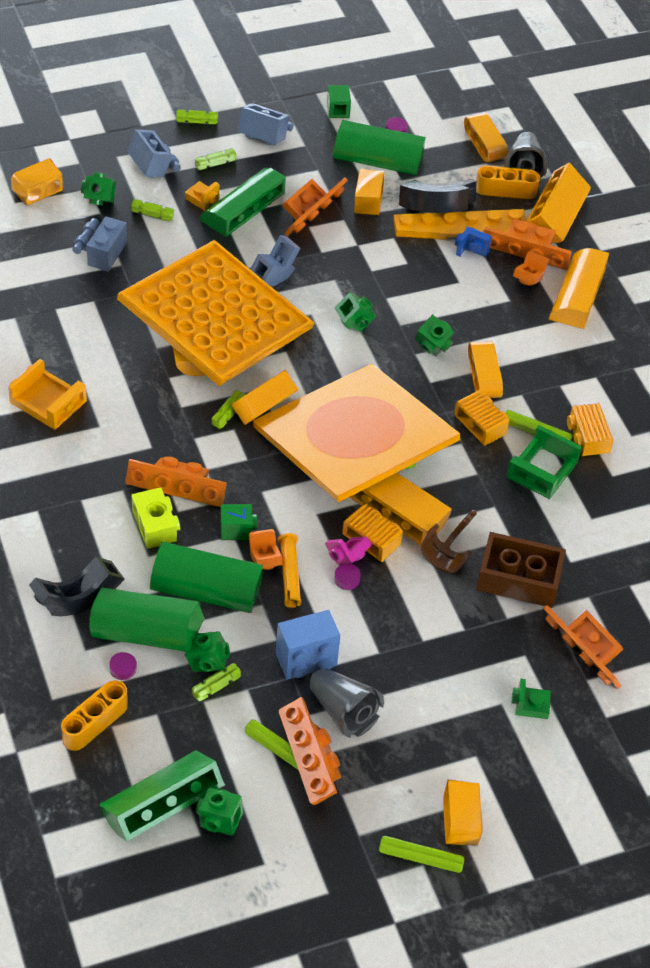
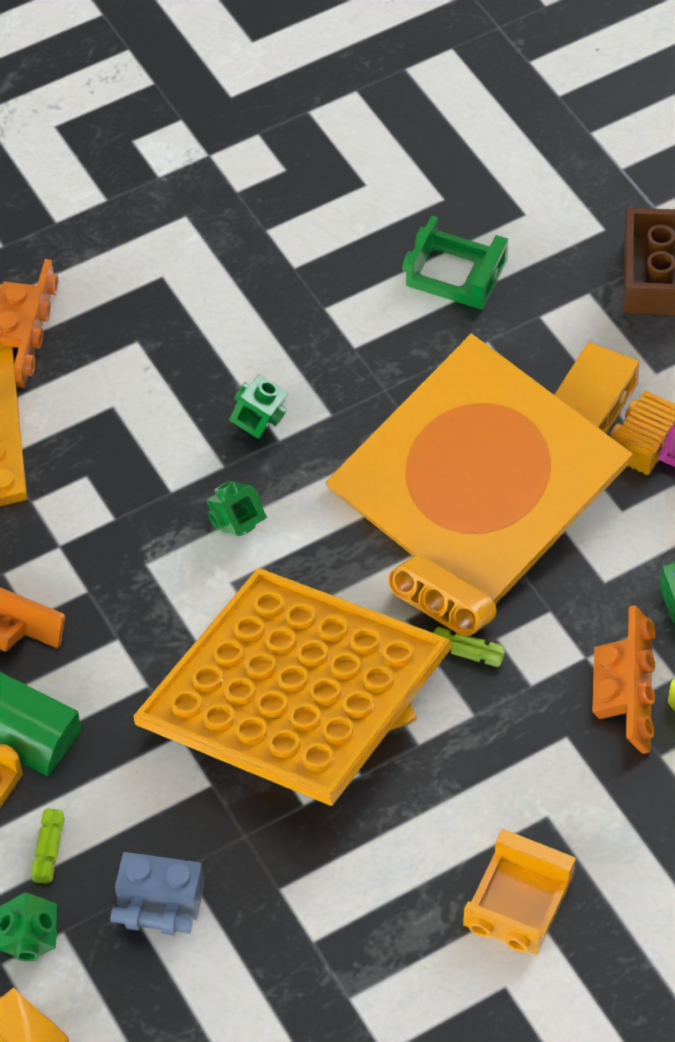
camera: 95 degrees left, 5 degrees up
(277, 265) = (150, 634): sand blue brick -> none
(432, 542) = (653, 337): reddish brown helmet -> none
(474, 241) = (35, 390): blue bracket -> none
(482, 417) = (396, 338): light orange brick -> none
(485, 368) = (301, 345): light orange beam -> none
(529, 425) = (390, 281): lime axle -> none
(532, 269) = (79, 314): orange bracket -> none
(579, 287) = (103, 254): light orange brick -> none
(590, 429) = (382, 218): light orange brick -> none

